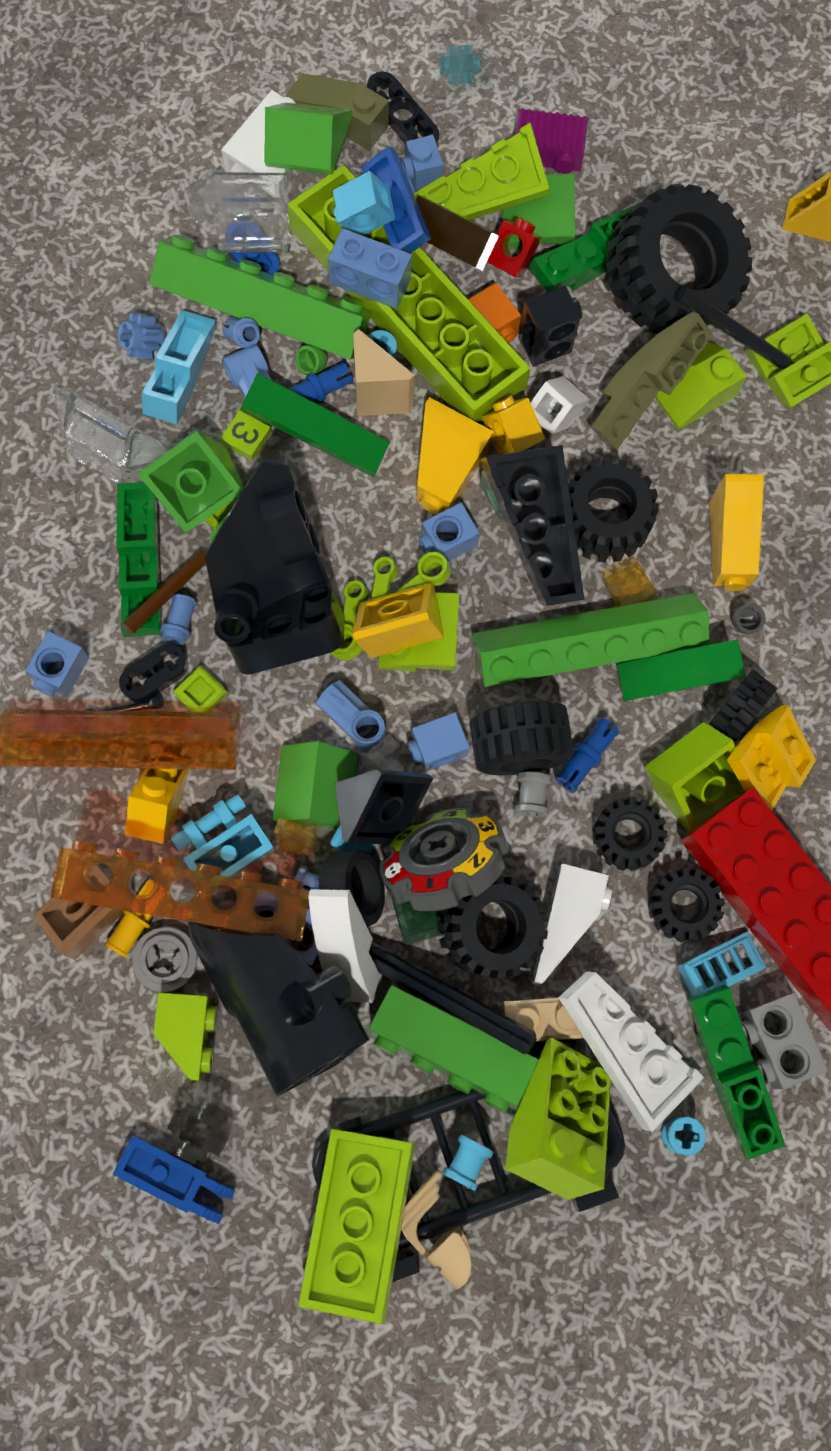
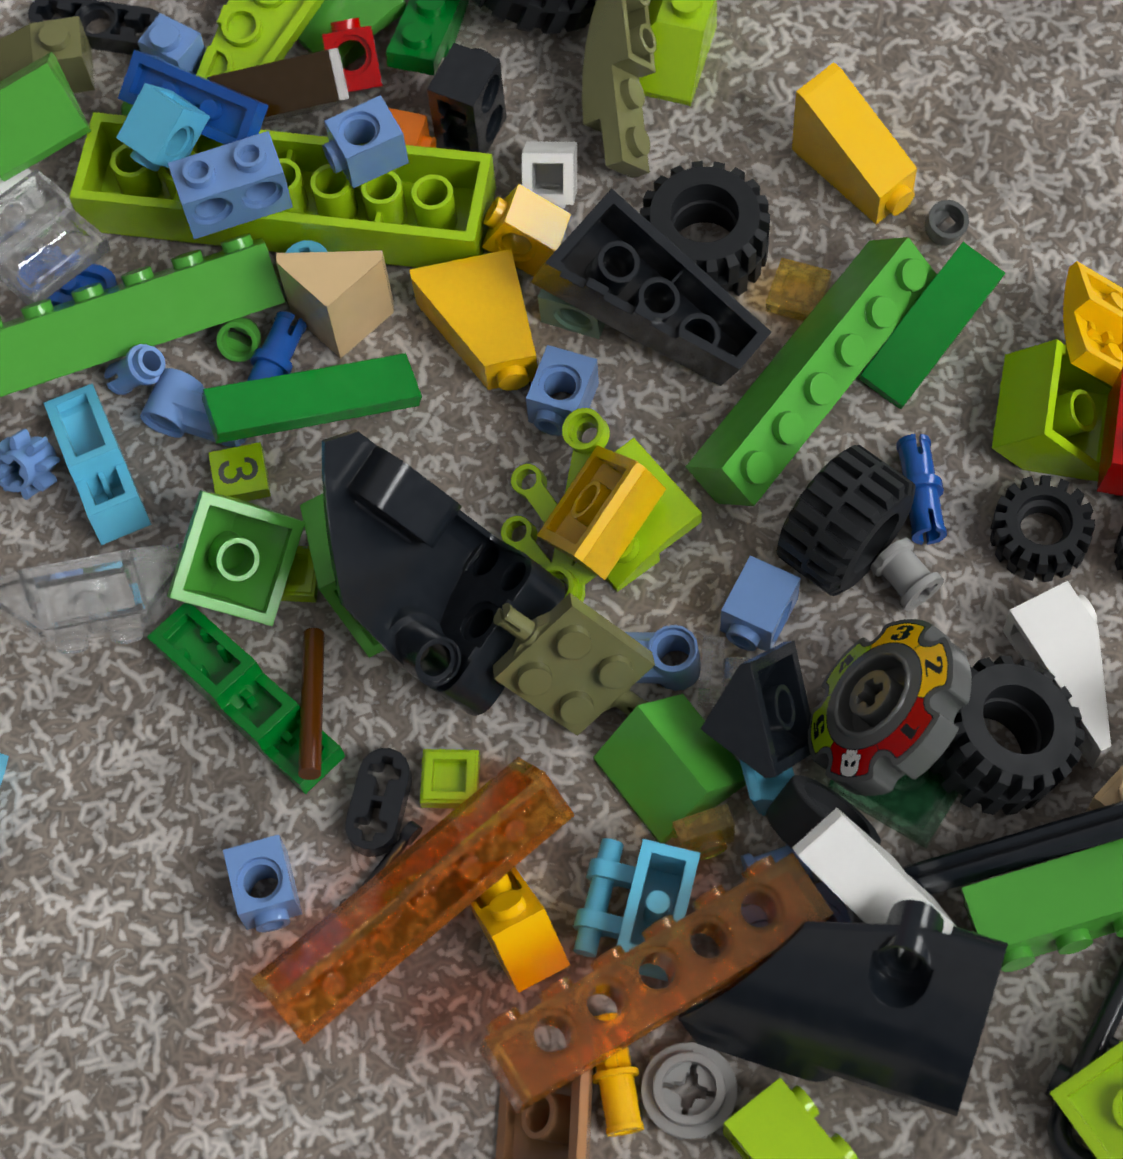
camera: 30 degrees left, 10 degrees down
(178, 620) = (353, 722): medium blue pin -> none
(305, 689) = (571, 663): none -> olive plate
(464, 318) = (367, 124): none -> medium blue brick
(743, 705) = (1029, 302): black tyre -> none

